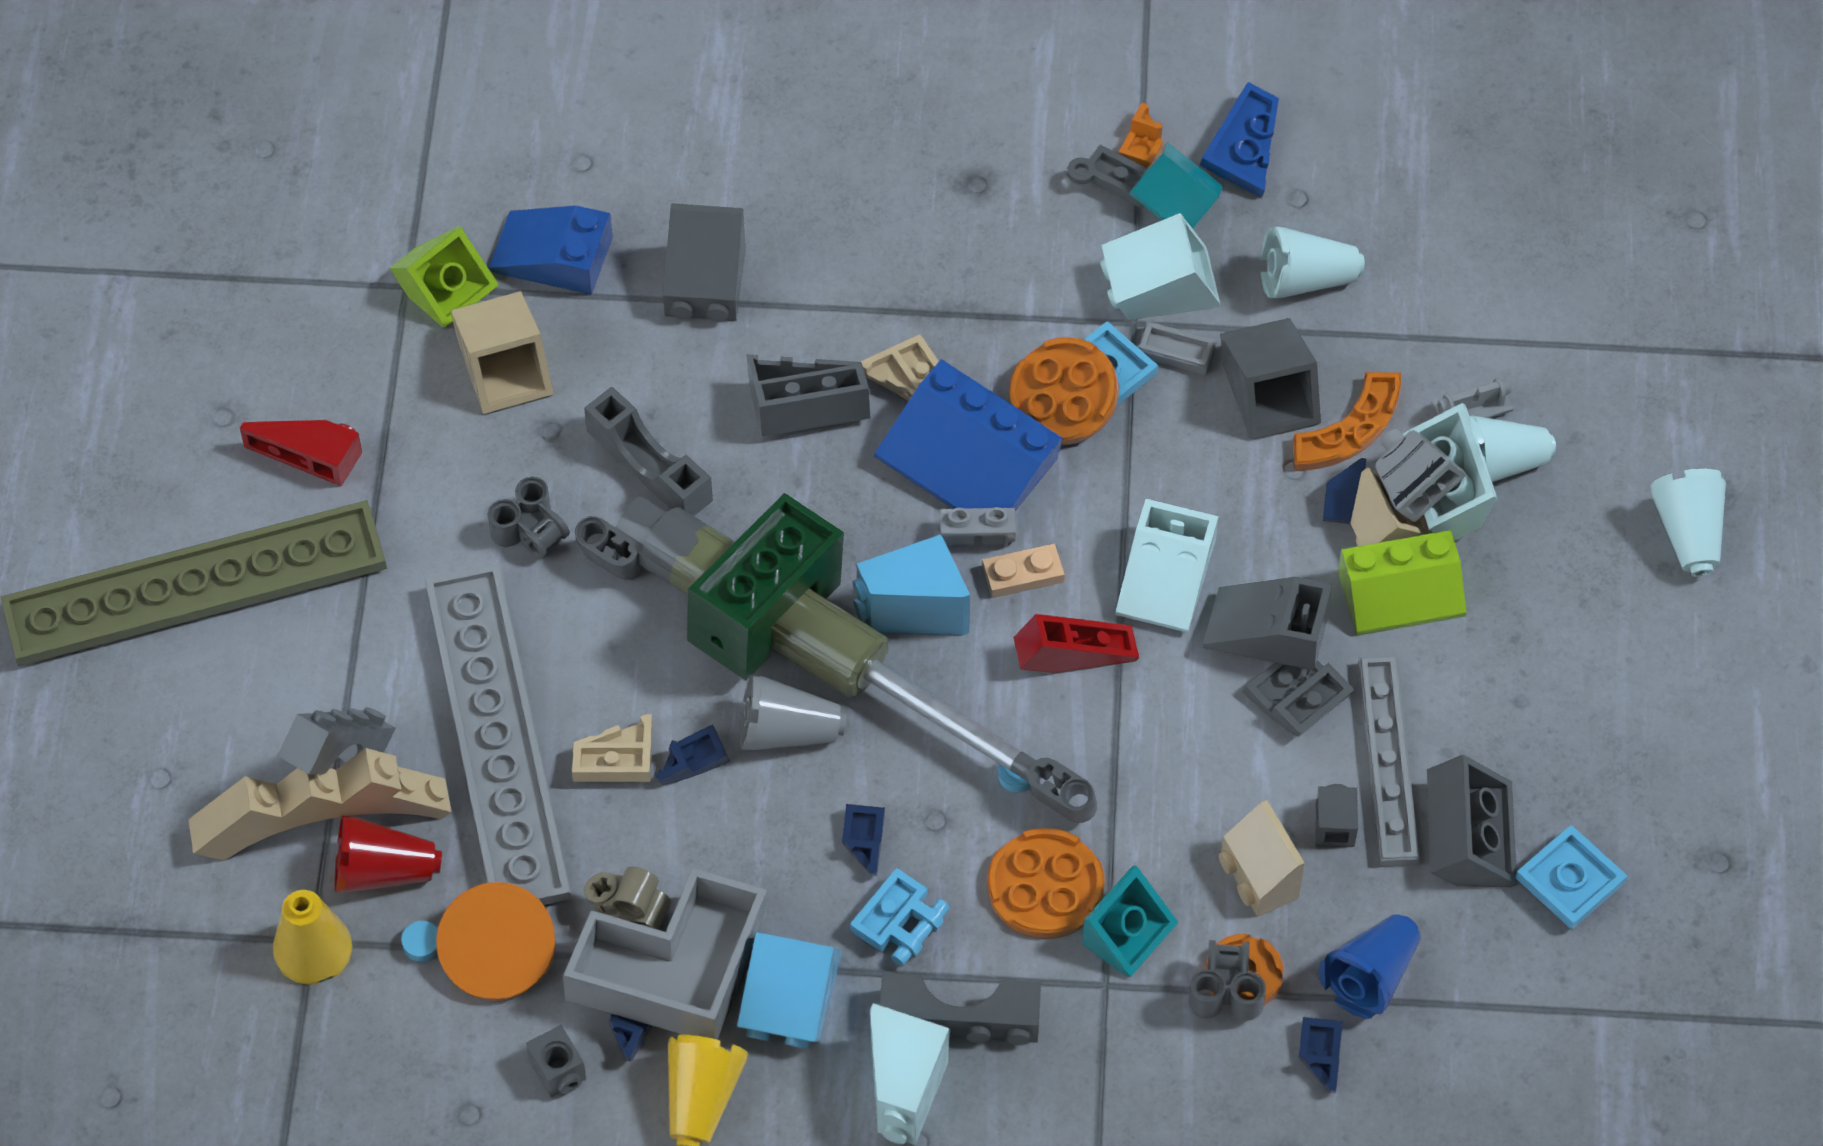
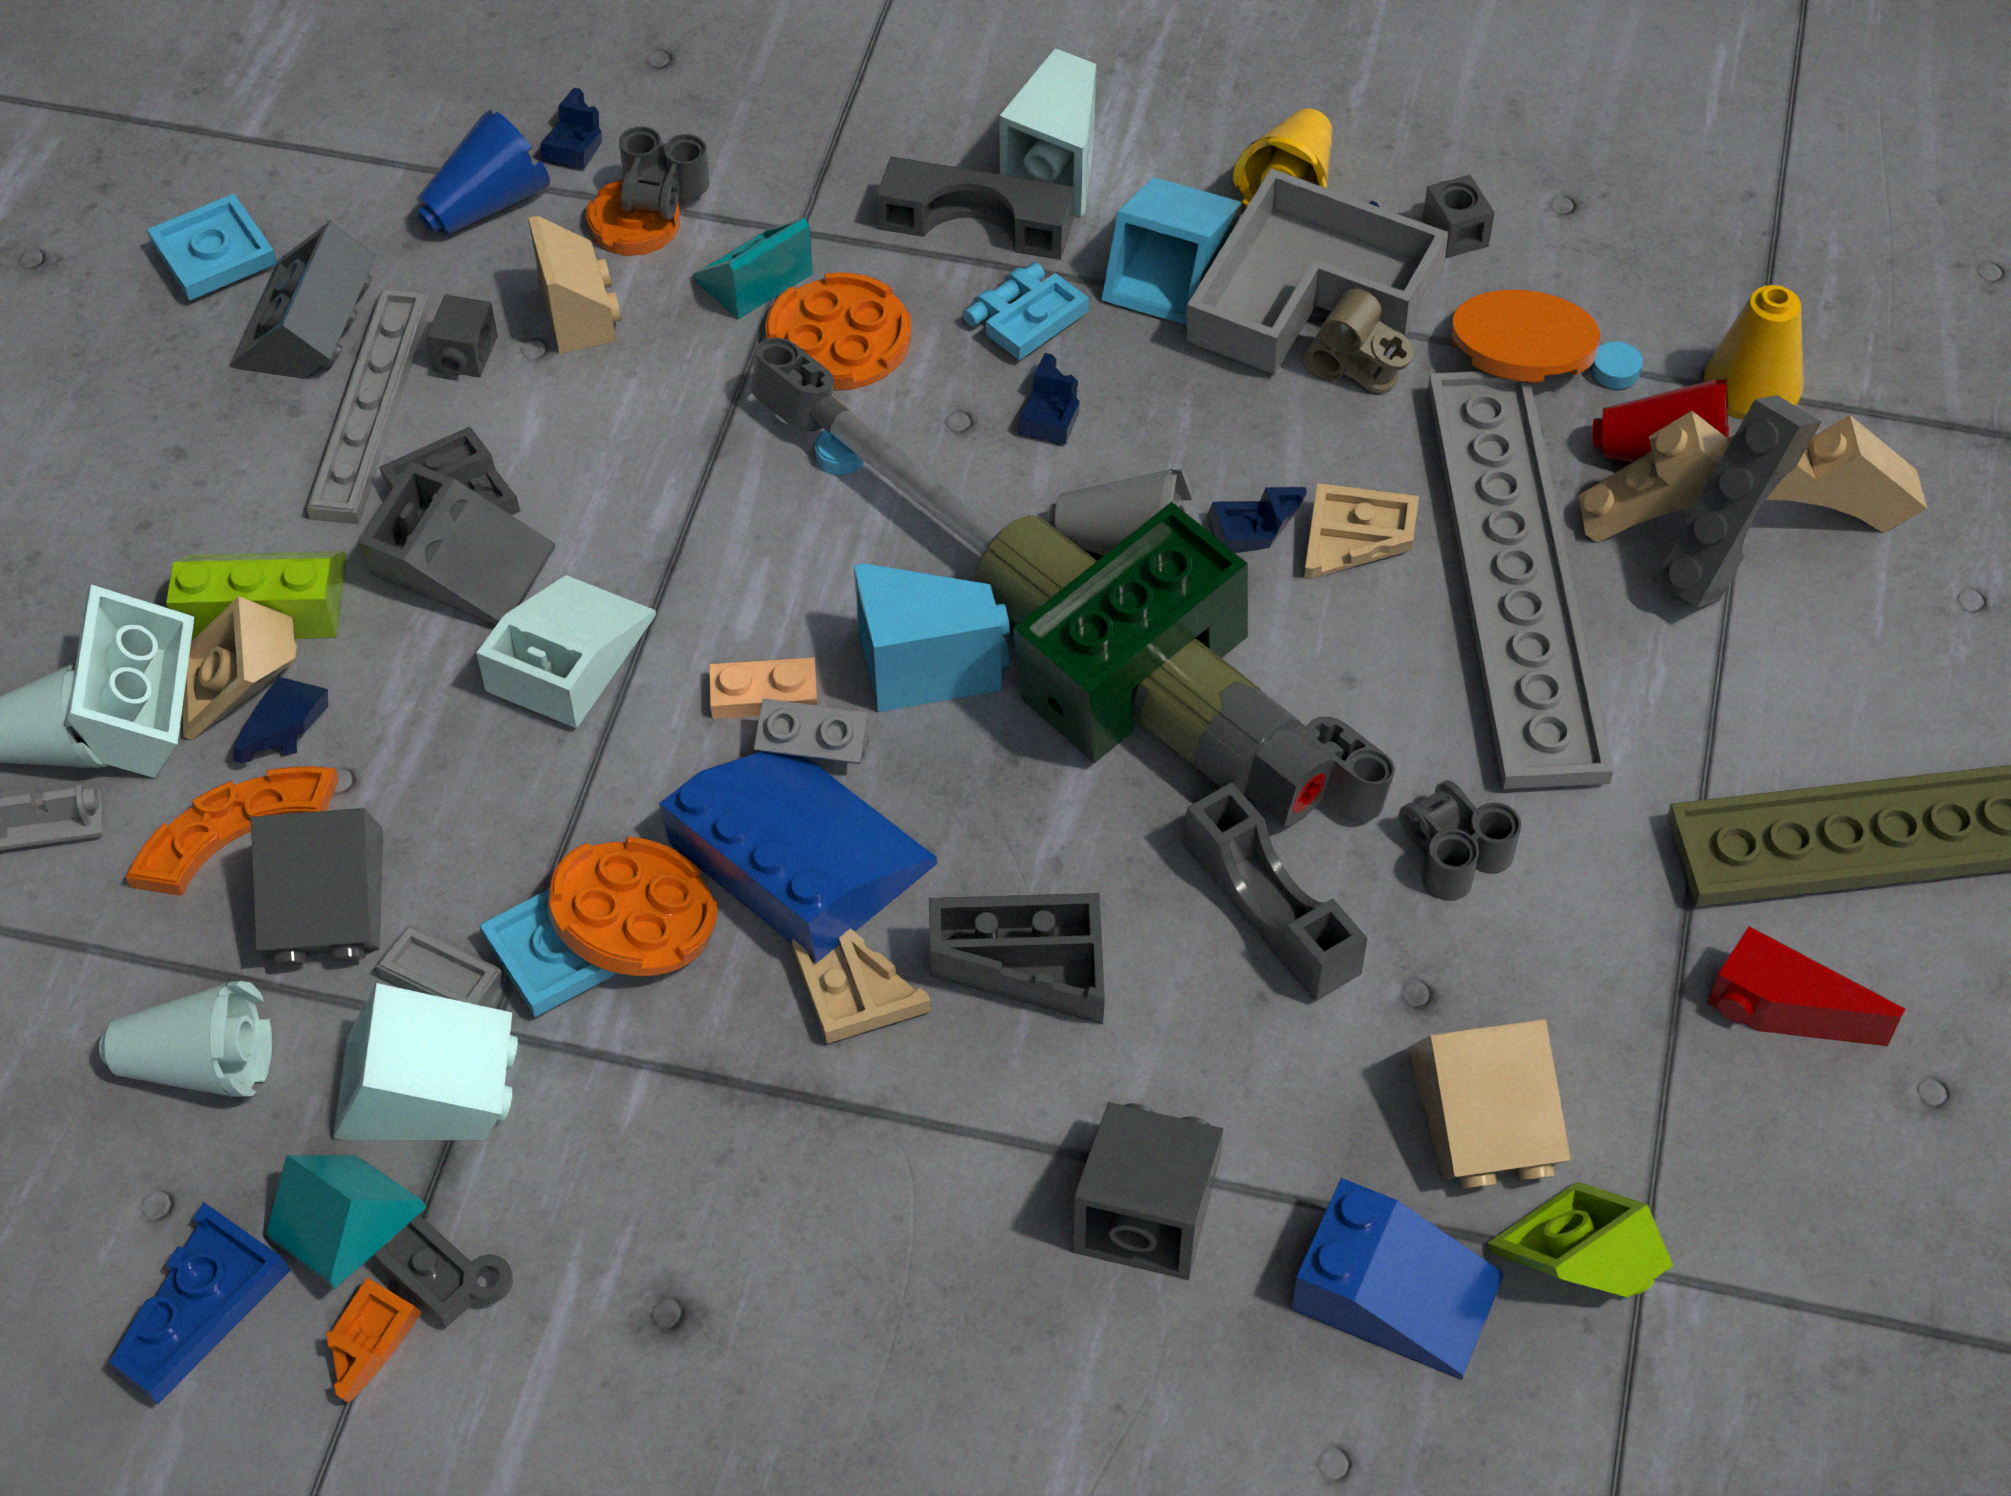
camera: 170 degrees left, 5 degrees down
(1072, 644) = (726, 567): red slope -> none
(1415, 472) = (176, 656): light grey torso -> none

